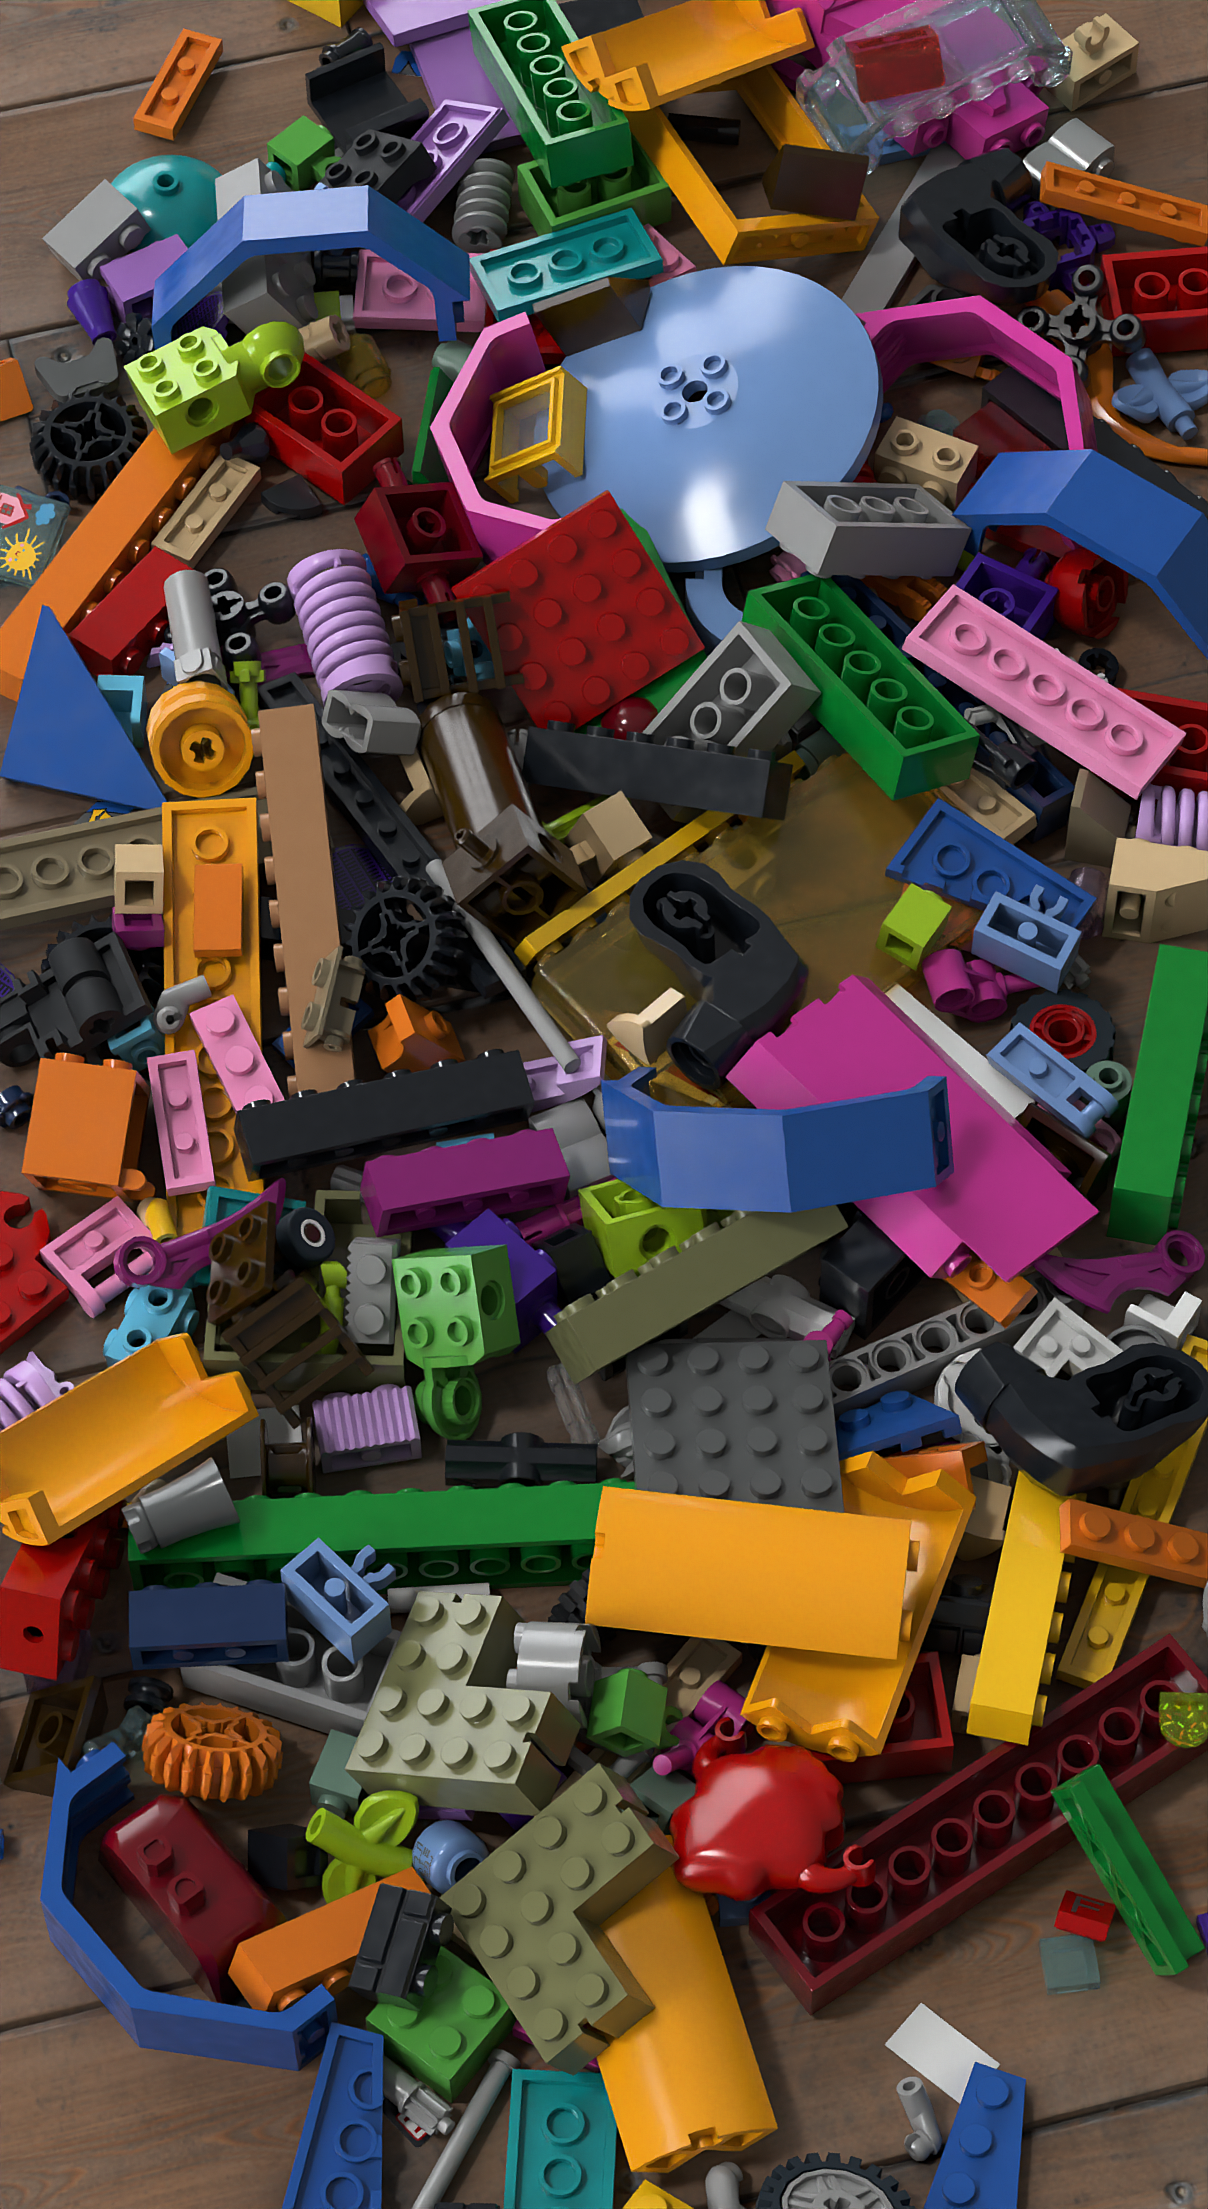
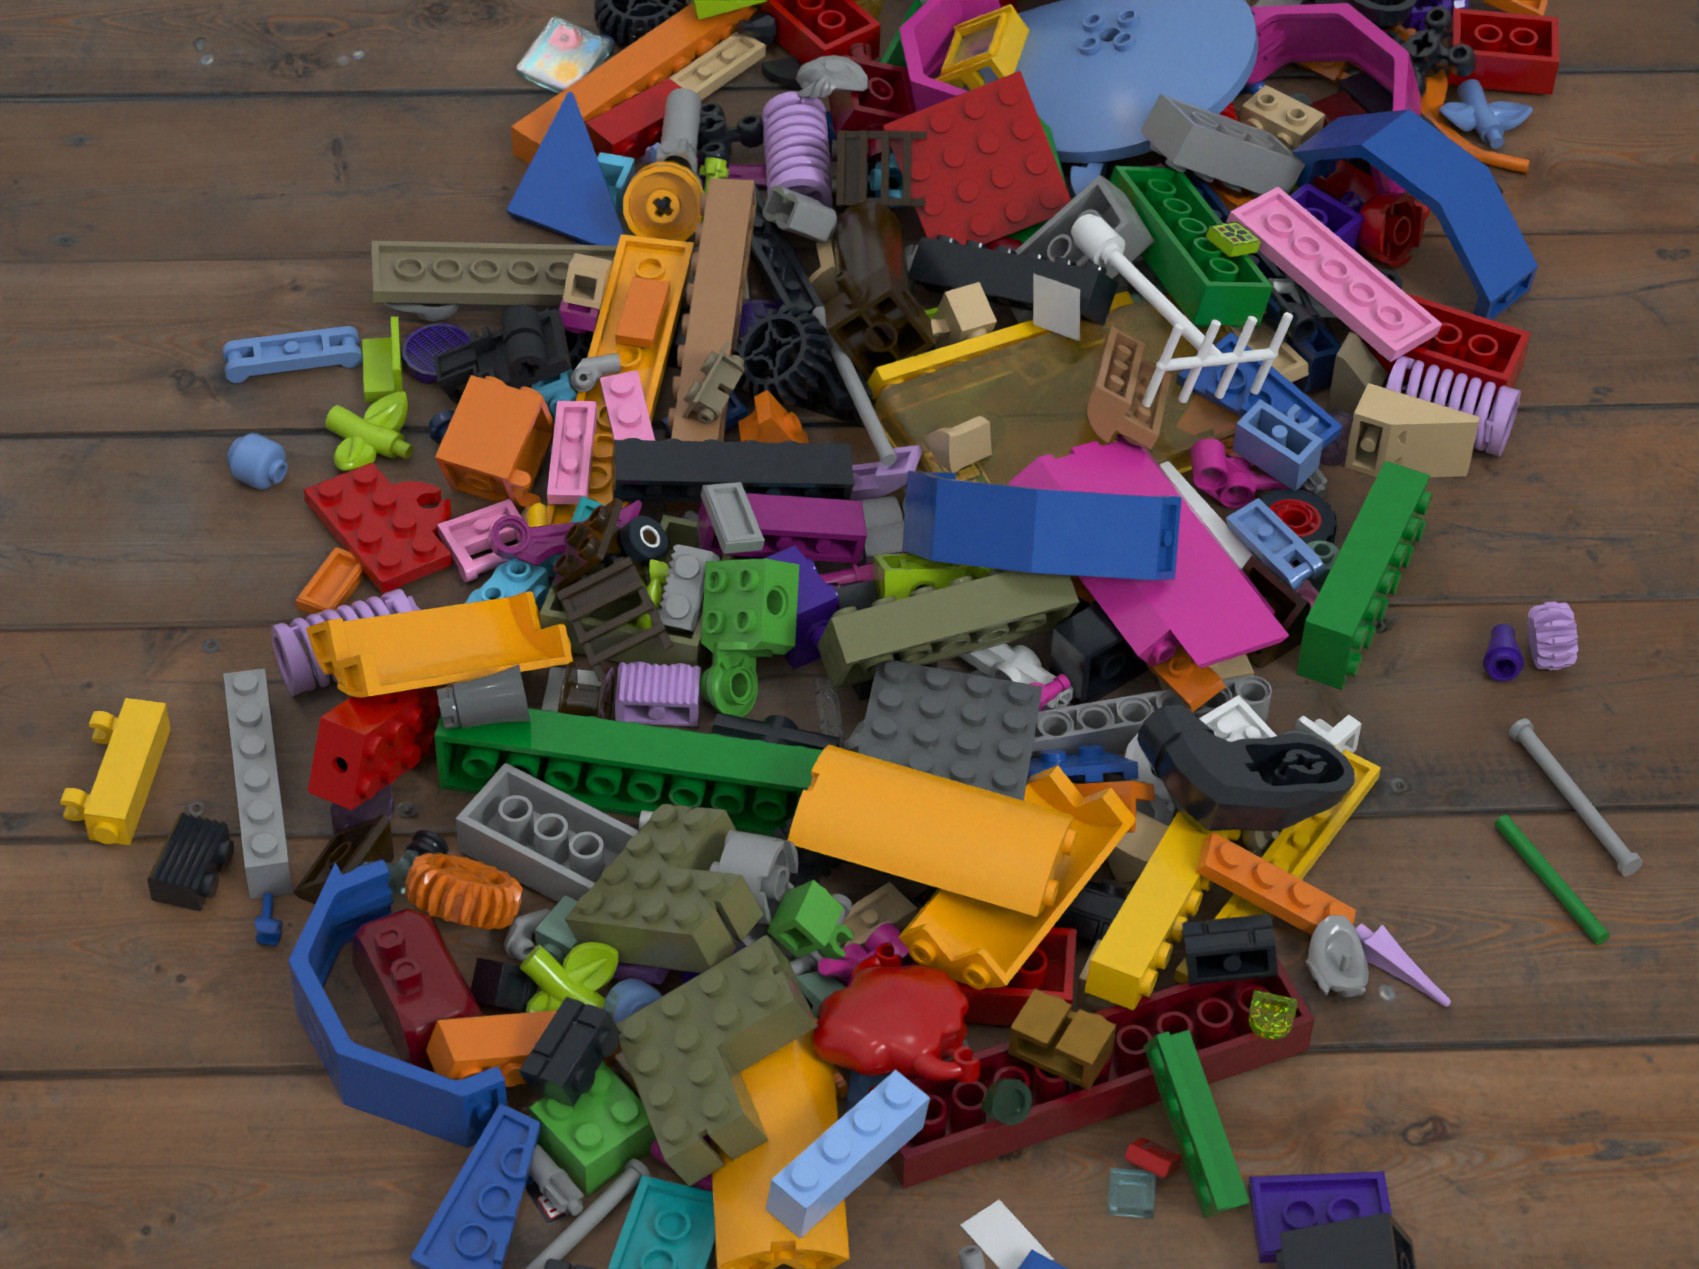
camera: 10 degrees right, 10 degrees down
(208, 1625) = (484, 793): dark blue brick -> none
(286, 1791) = (520, 934): none -> light grey arm
(340, 1598) = (594, 791): medium blue brick -> none
(366, 522) = (830, 75): none -> light grey hat
(409, 1194) = (732, 517): none -> light grey tile
(724, 811) = (1056, 307): none -> white sticker
(725, 959) = (1028, 401): black piece -> none
(751, 2009) = (847, 1154): none -> light blue brick
(769, 726) = (1106, 249): none -> white piece
(840, 919) = (1120, 388): none -> medium nougat brick
(913, 926) = (1190, 421): lime brick -> none
(914, 1899) = (1007, 1101): none -> clear green tile
(917, 675) = (1233, 239): none -> lime tile
(957, 1805) = (1061, 1040): none -> pearl gold piece
(1104, 1280) = (1285, 694): magenta piece -> none
(1121, 1646) = (1230, 949): none -> black brick

